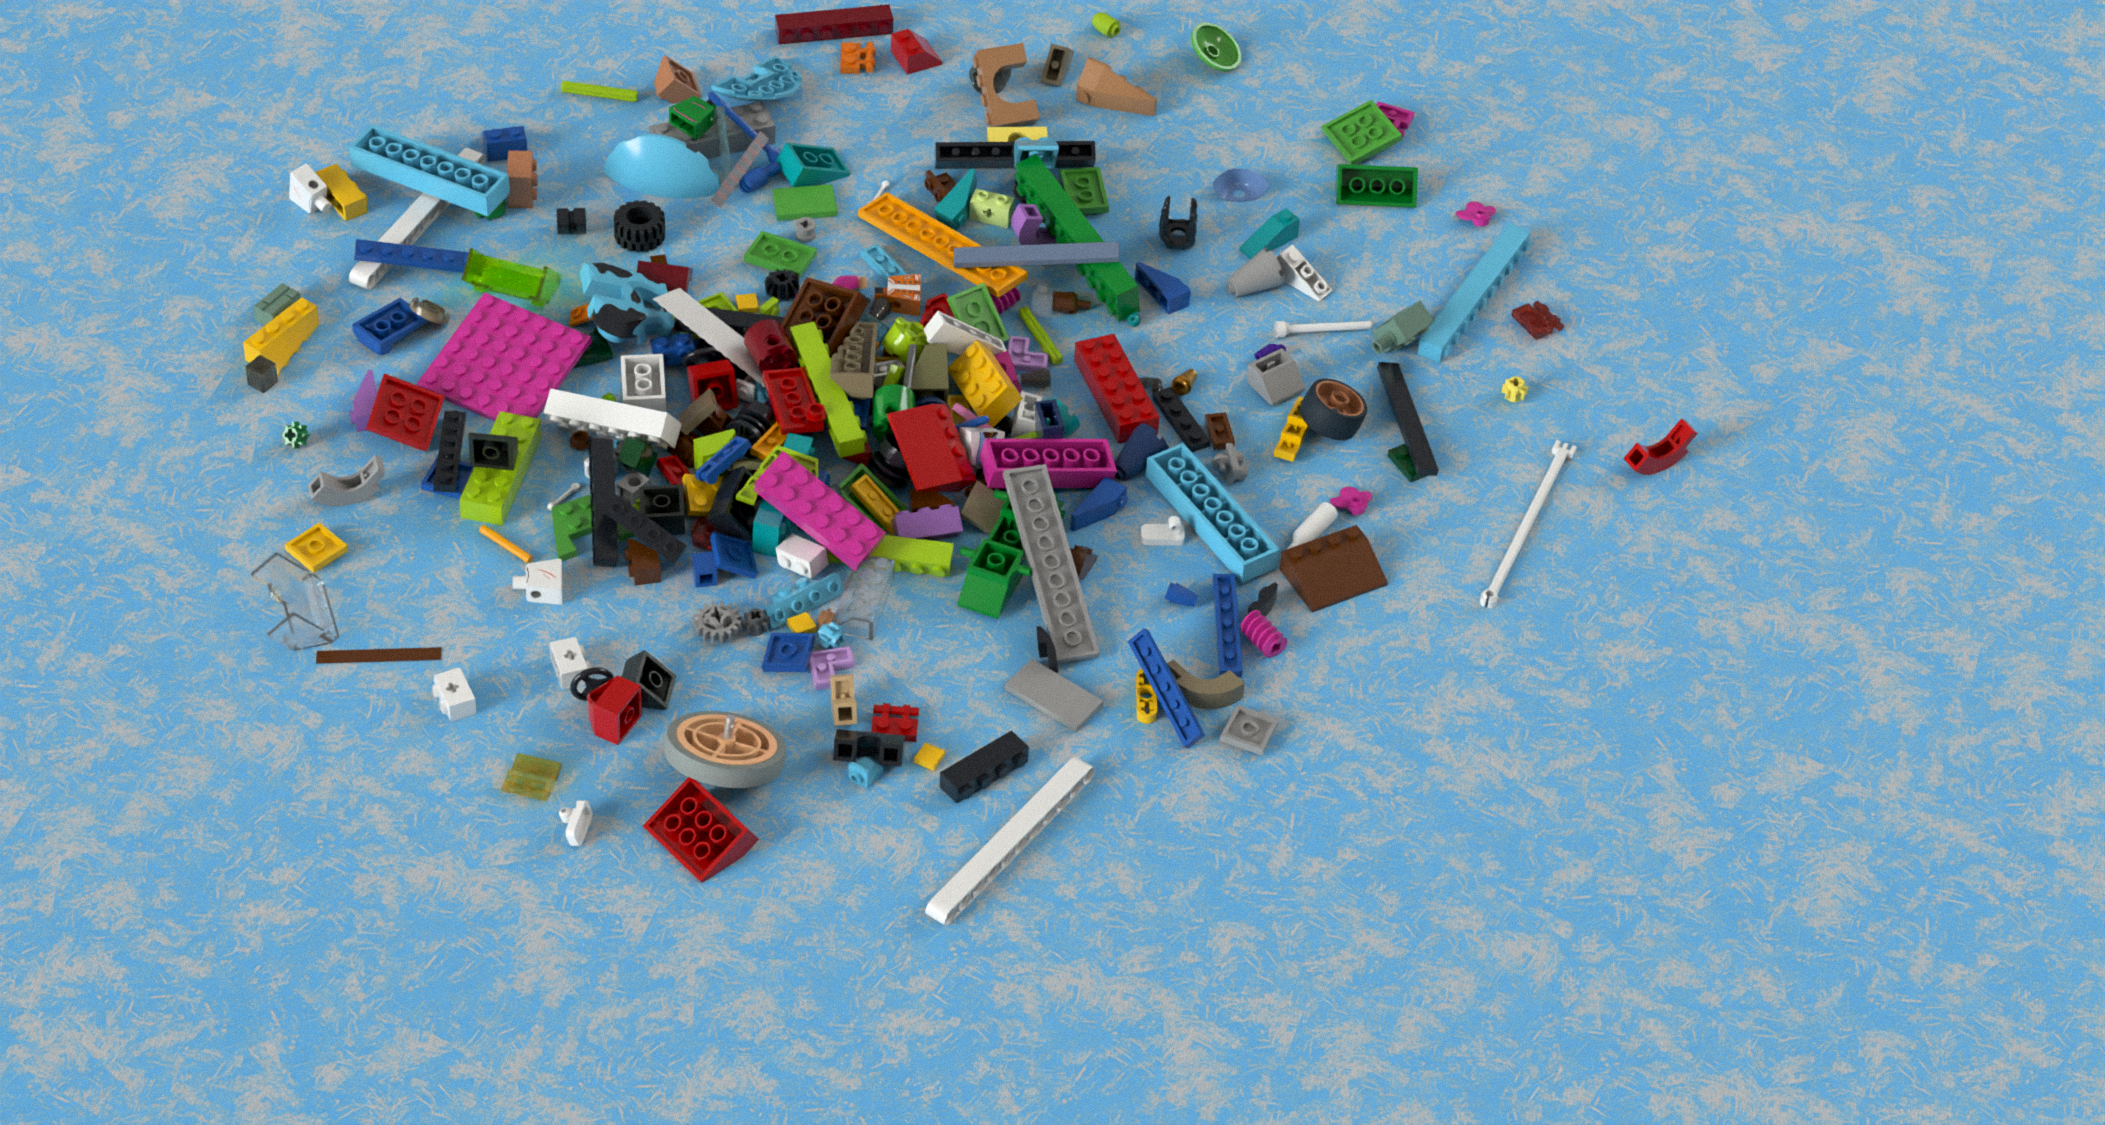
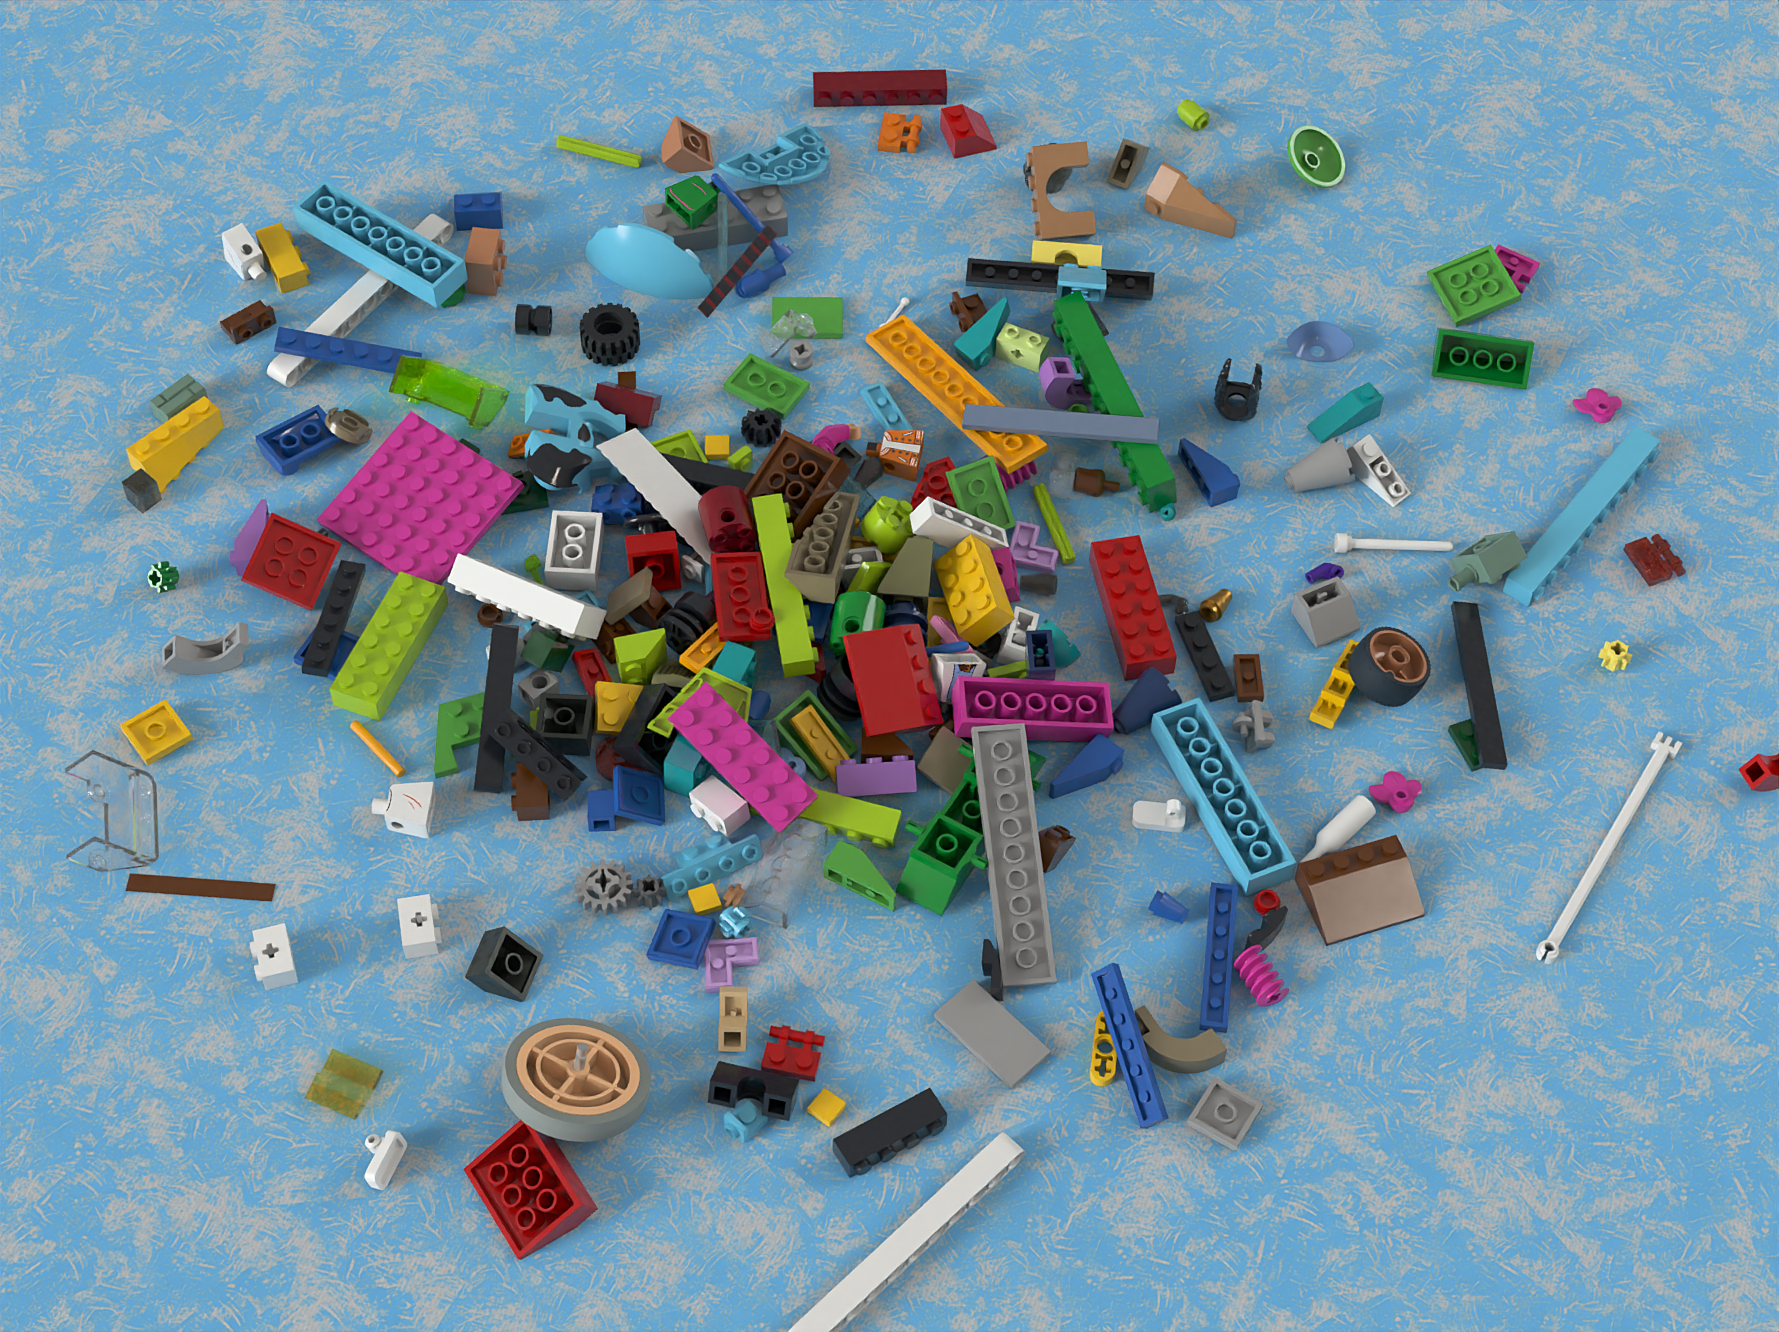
camera: 10 degrees right, 10 degrees up
(322, 243) = (248, 322): none -> reddish brown bracket
(493, 451) = (376, 630): pearl dark grey slope -> none
(574, 488) = (473, 678): white hinge -> none
(611, 702) = (453, 996): red piece -> none
(722, 460) = (642, 671): blue plate -> none
(788, 211) = (790, 324): none -> clear bracket
(811, 164) = (822, 270): teal slope -> none
(910, 366) = (885, 566): dark grey bar -> none
(925, 594) = (854, 871): none -> bright green slope
(1085, 189) = (1135, 332): bright green plate -> none
(1258, 583) = (1266, 901): none -> red plate

